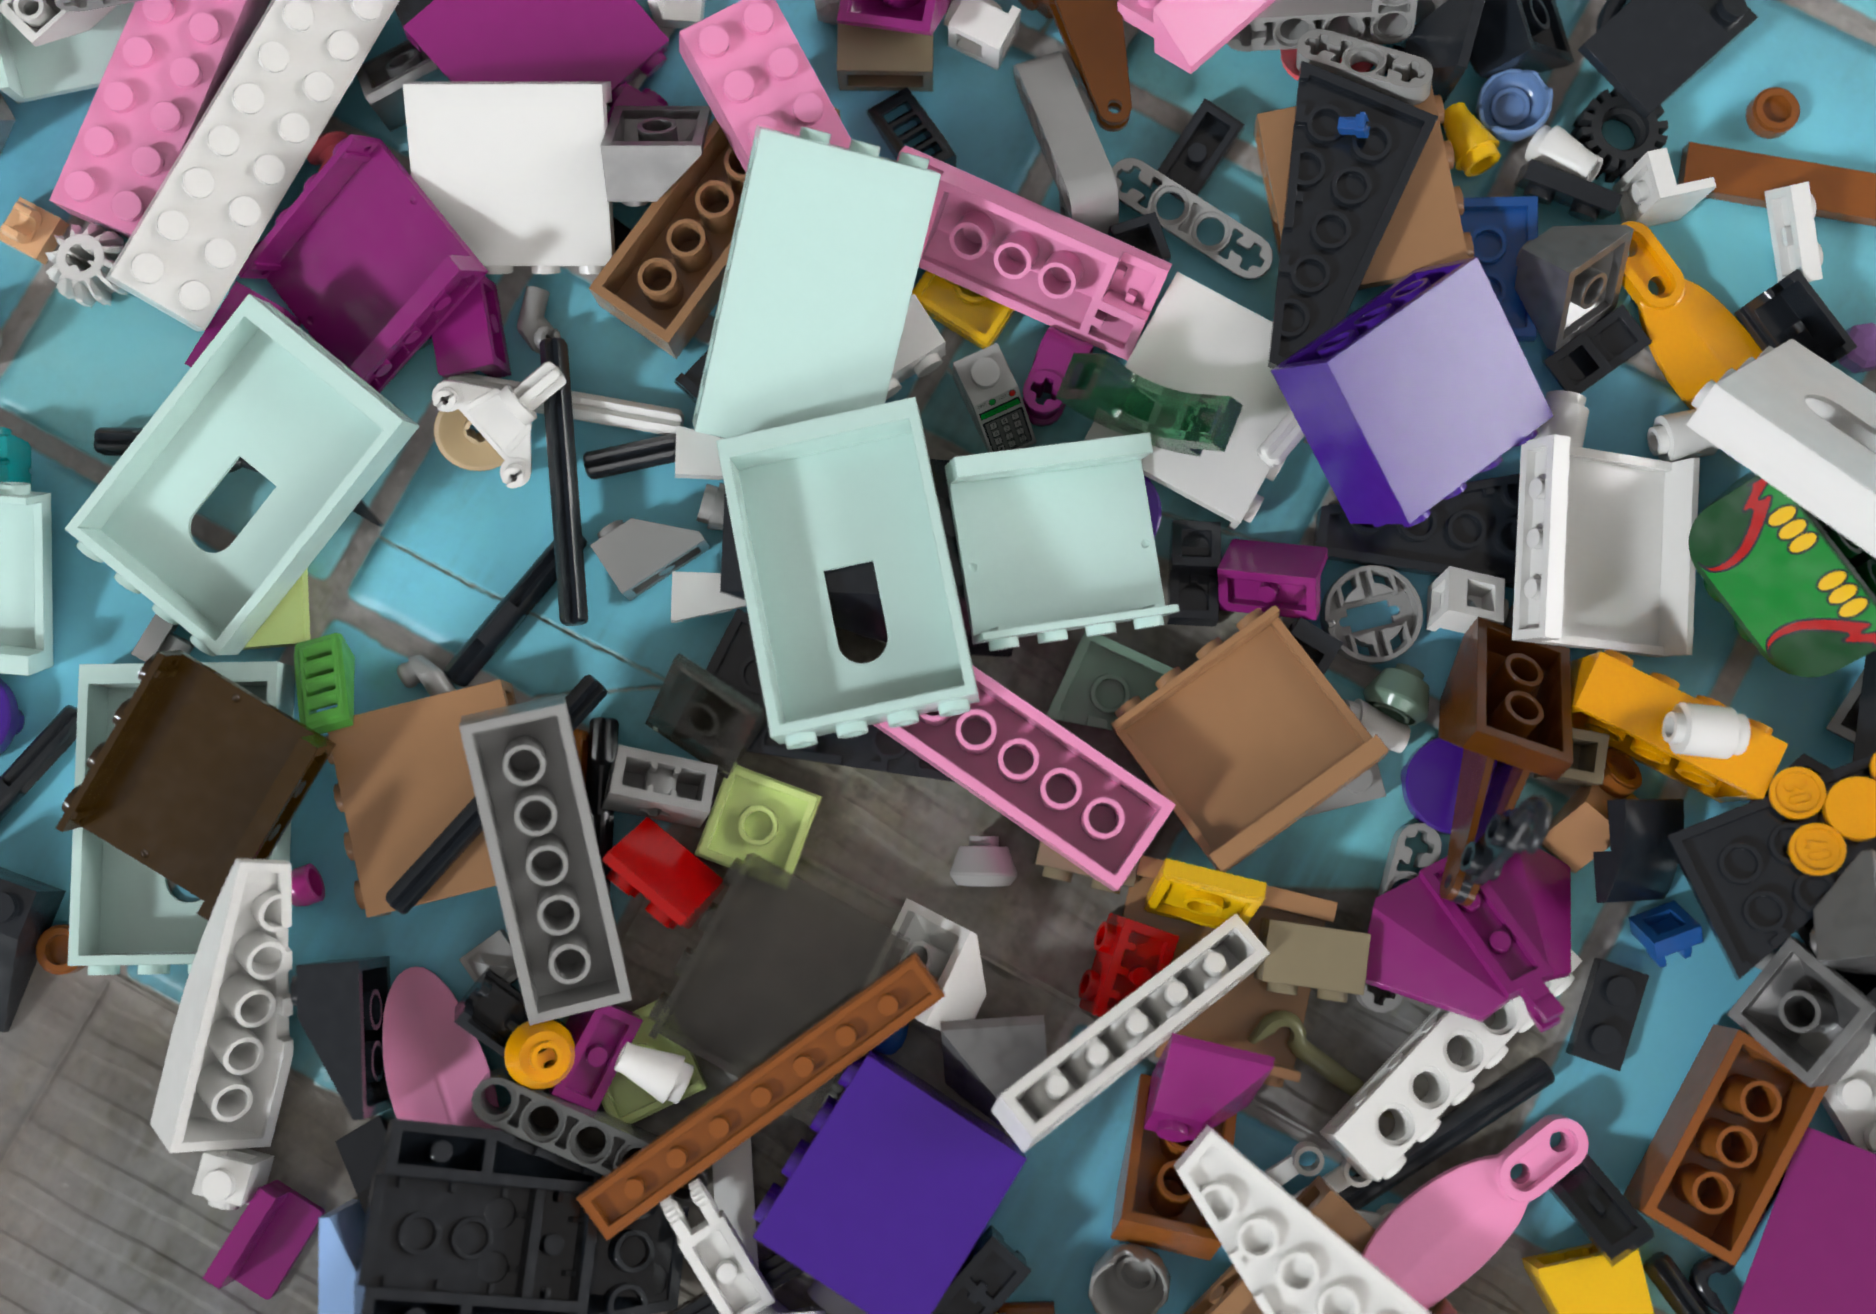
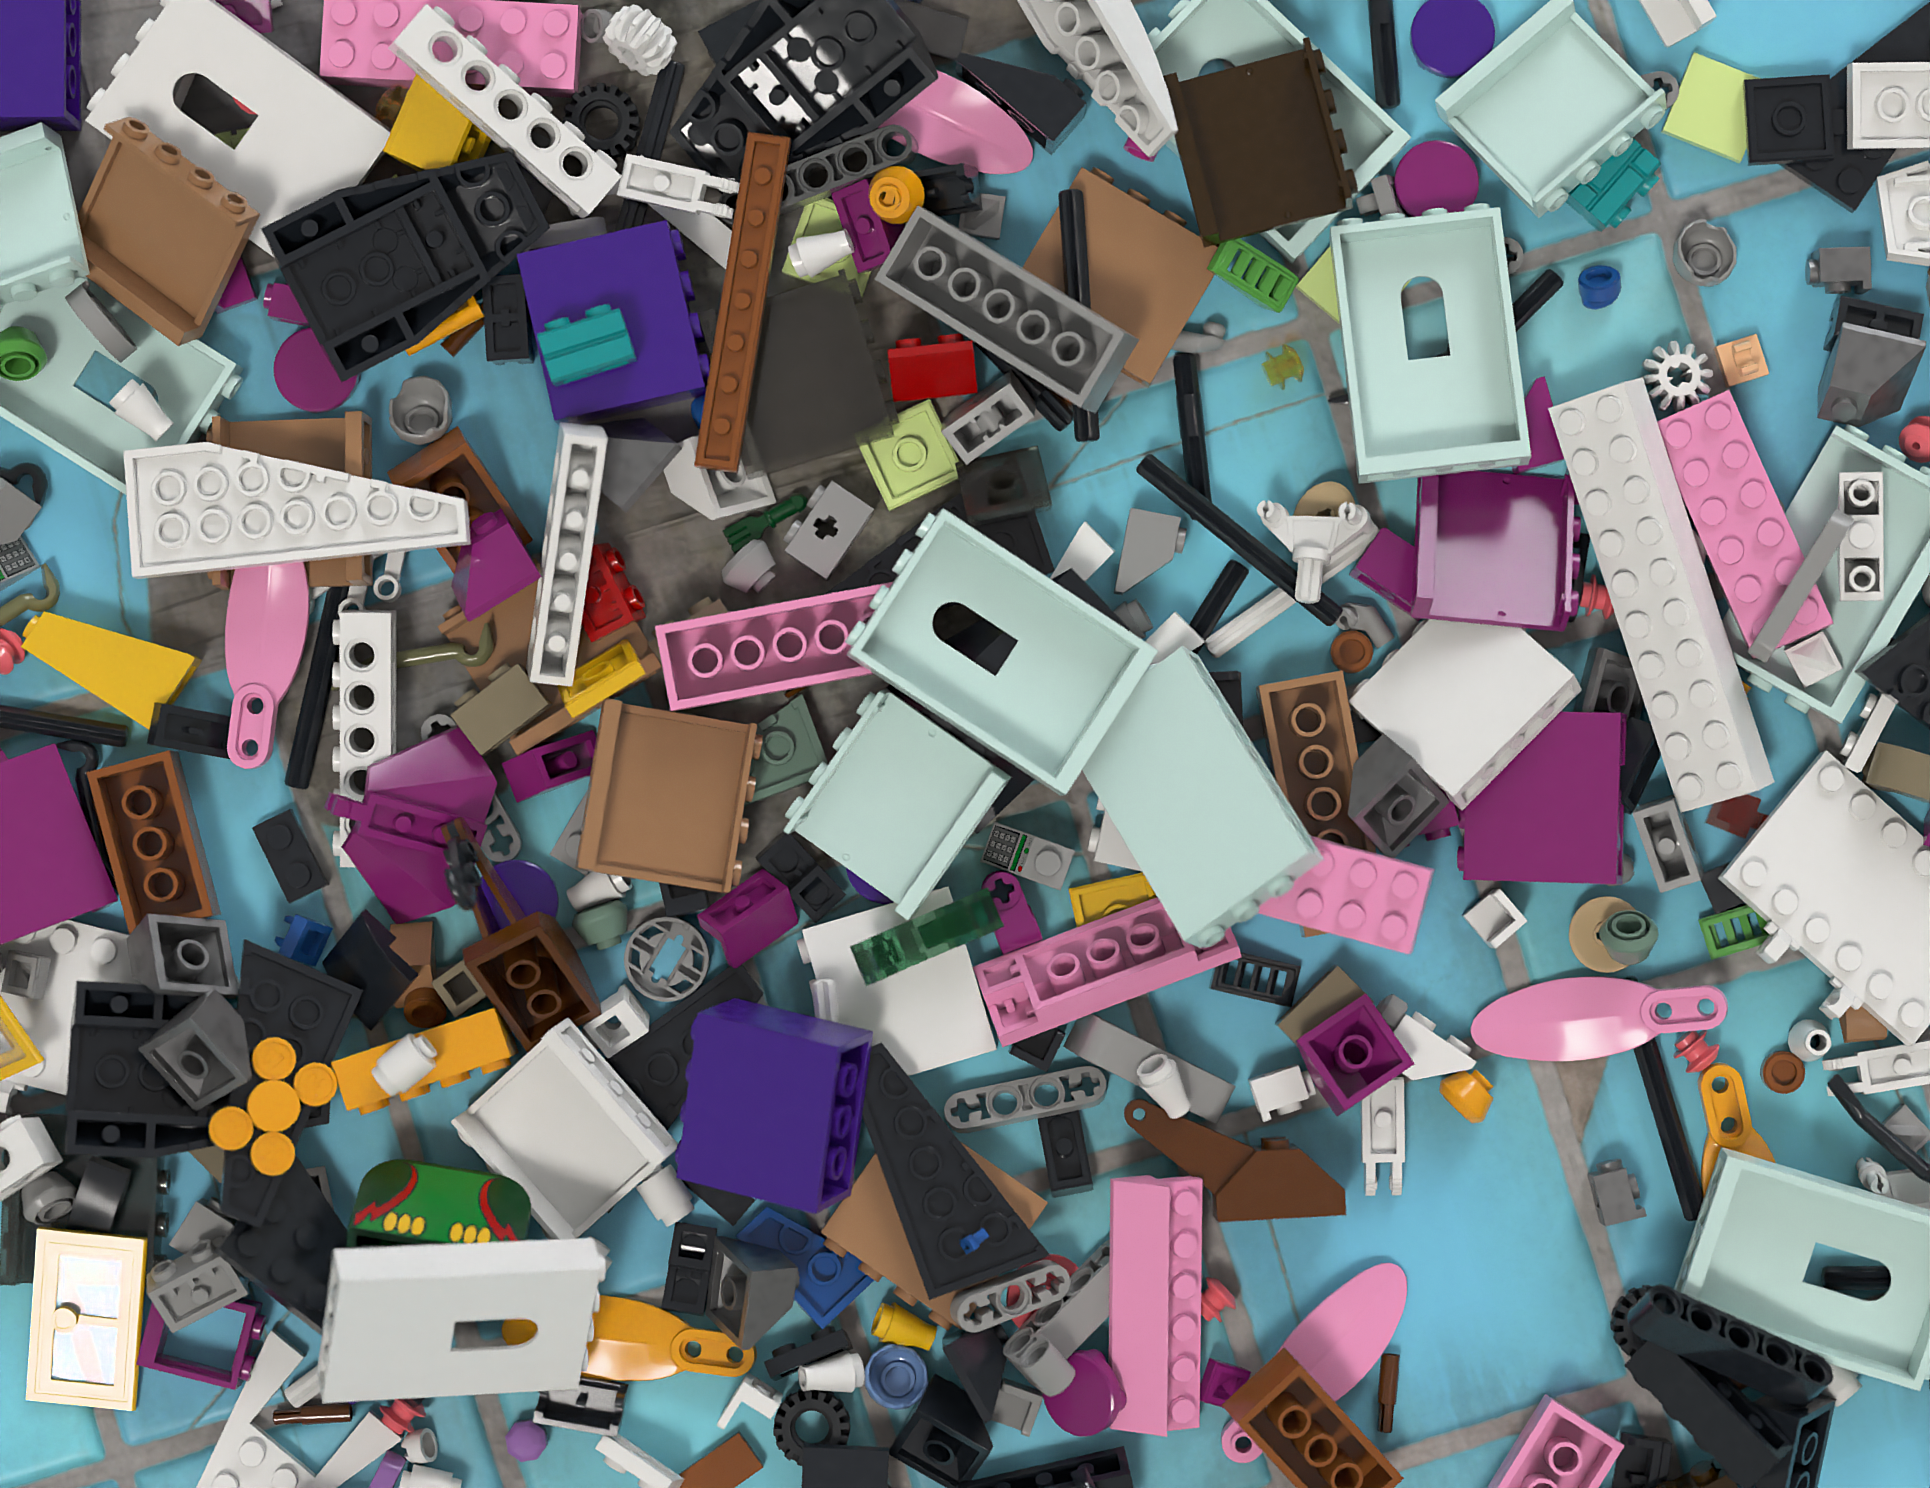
camera: 130 degrees right, 5 degrees up
(72, 397) = (1599, 286): none -> blue tile
(101, 615) = (1435, 177): none -> magenta tile
(385, 587) = (1283, 367): none -> clear yellow wheel
(572, 311) = (1351, 652): none -> dark orange tile
(858, 820) = (827, 554): none -> light grey brick
(934, 1198) = (586, 345): none -> teal brick
(948, 896) = (754, 527): none -> dark green piece
(1071, 105) = (1163, 1083): none -> white cone
(1314, 866) = (551, 766): none -> magenta slope

